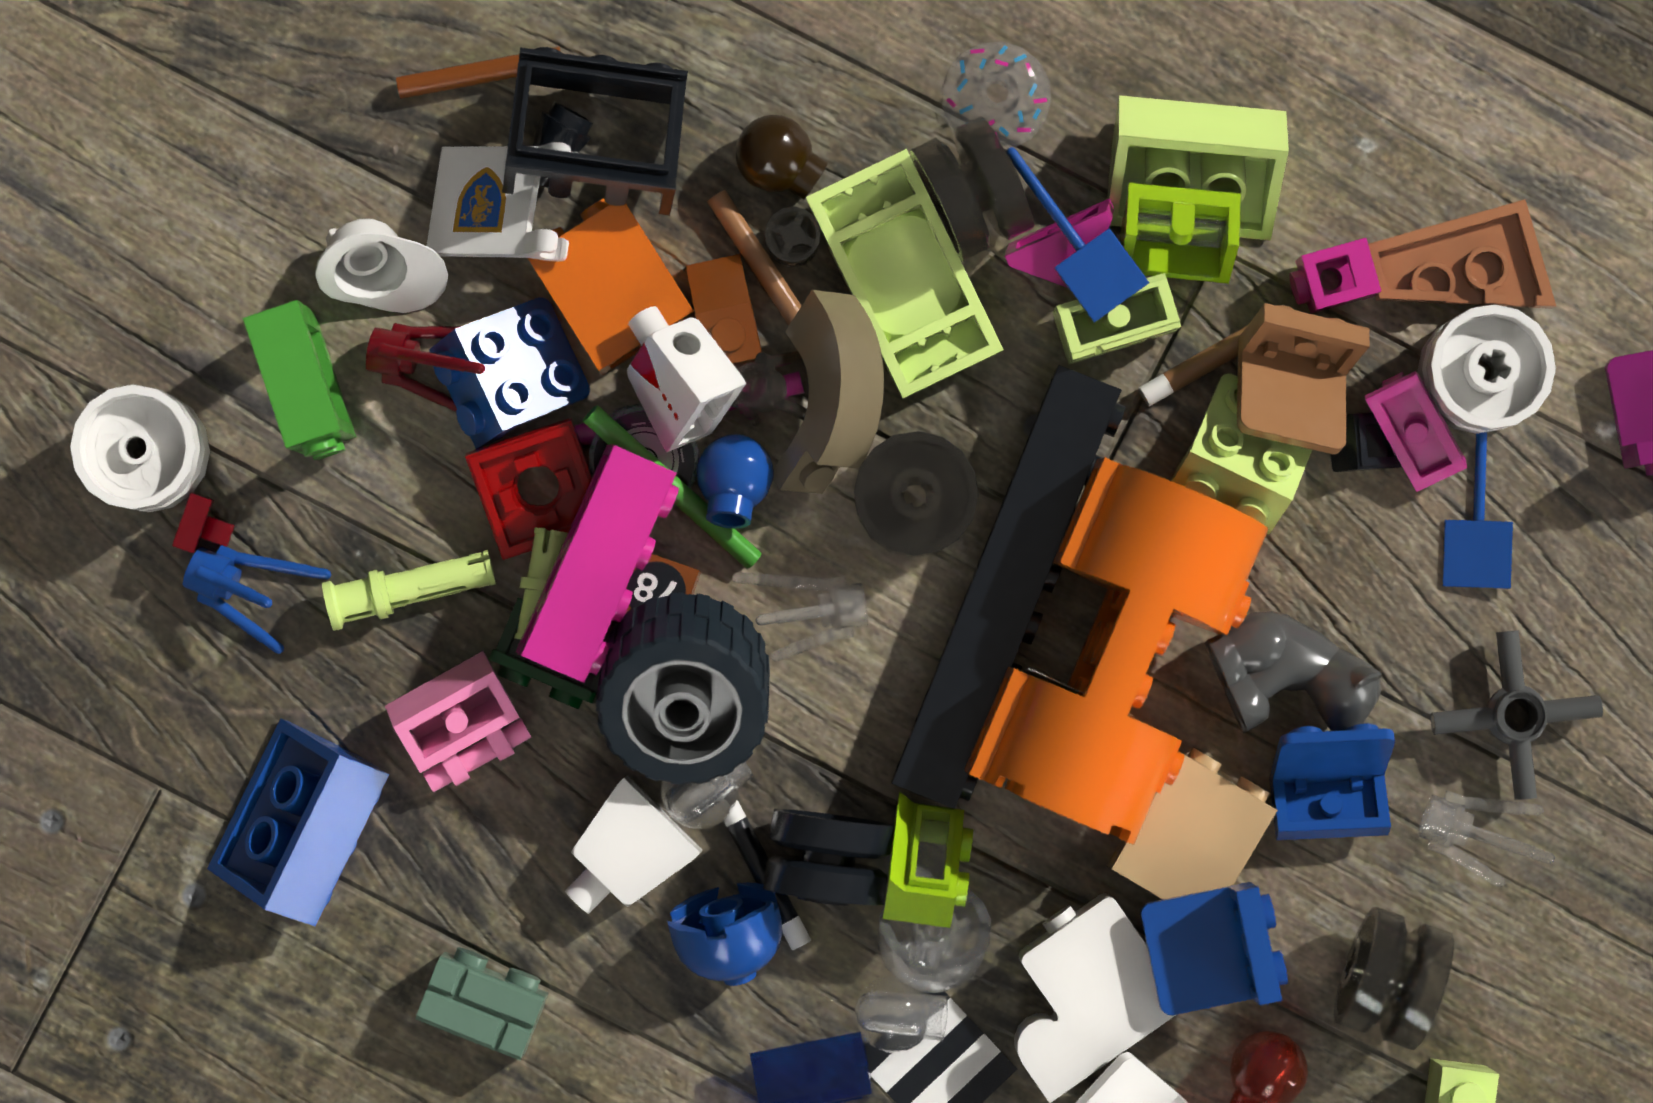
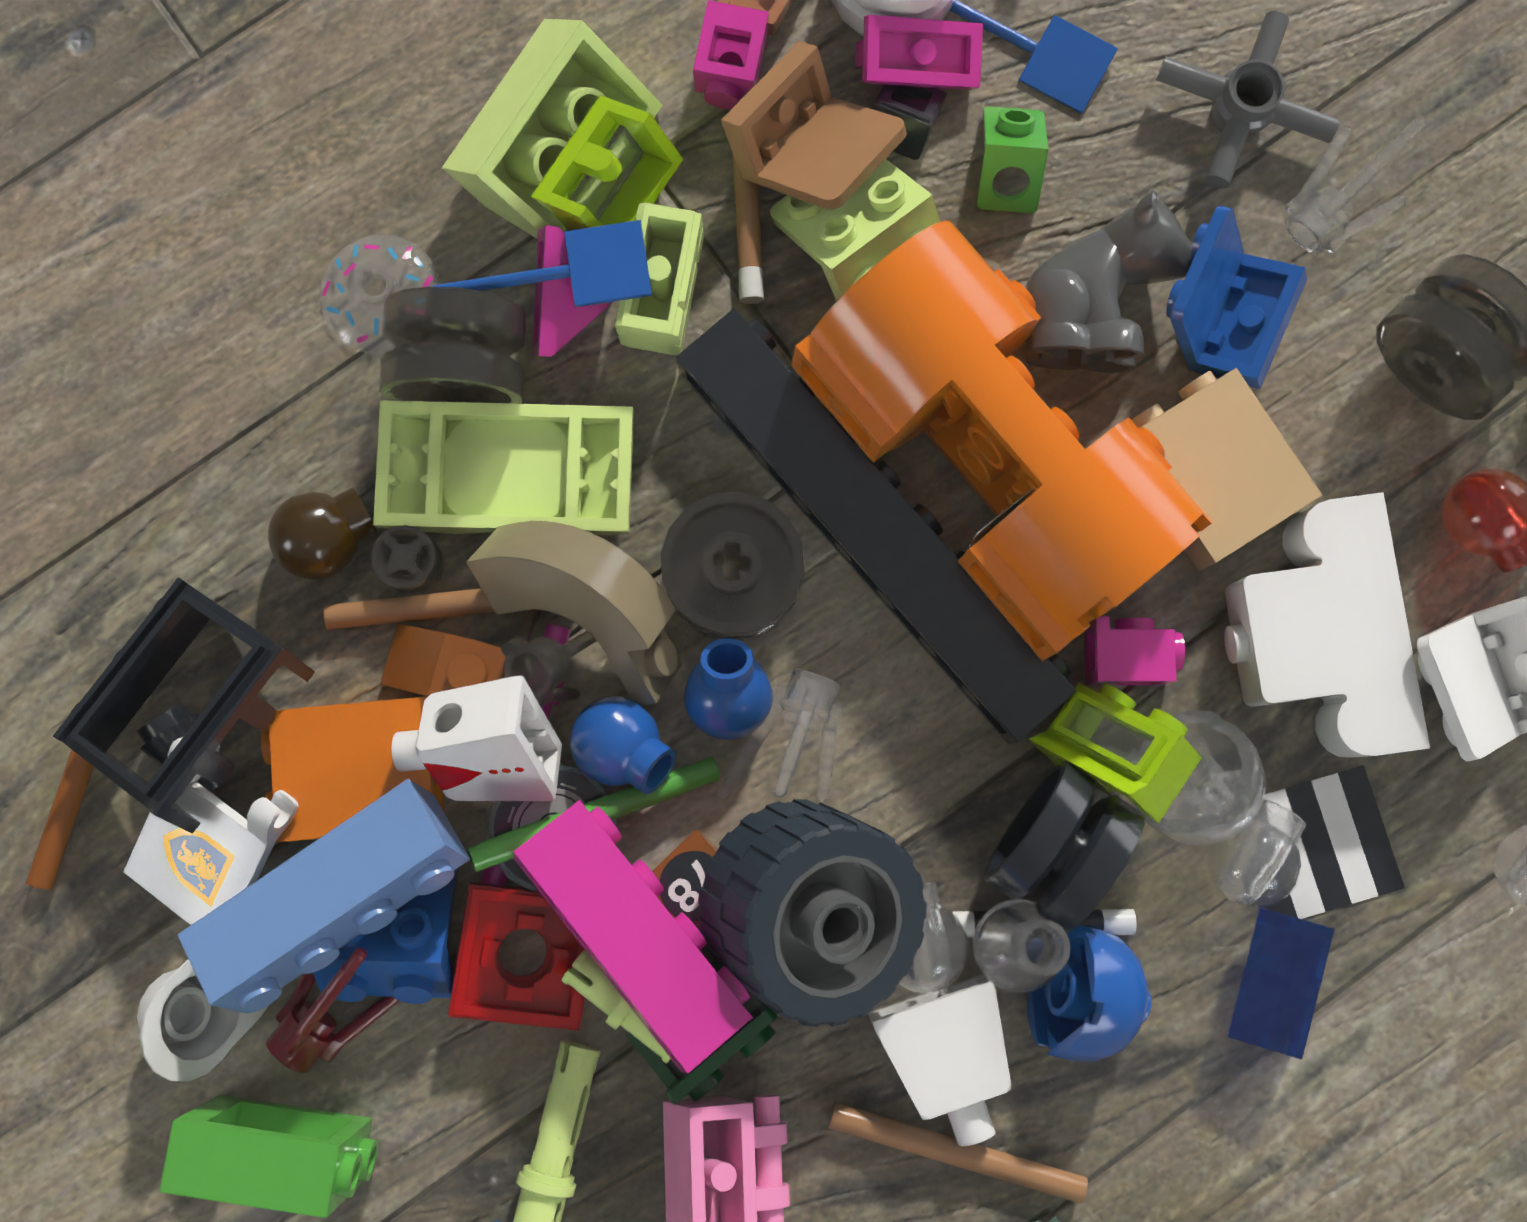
camera: 65 degrees left, 5 degrees down
(508, 322) = (323, 899): none -> medium blue brick
(558, 900) = (946, 1150): none -> medium nougat bar
(735, 859) = (1019, 946): none -> clear piece
(817, 541) = (728, 691): none -> blue piece
(1010, 841) = (1131, 653): none -> dark pink brick
(1213, 949) = (1357, 493): blue bracket -> none
(1381, 544) = (1013, 140): none -> bright green bracket

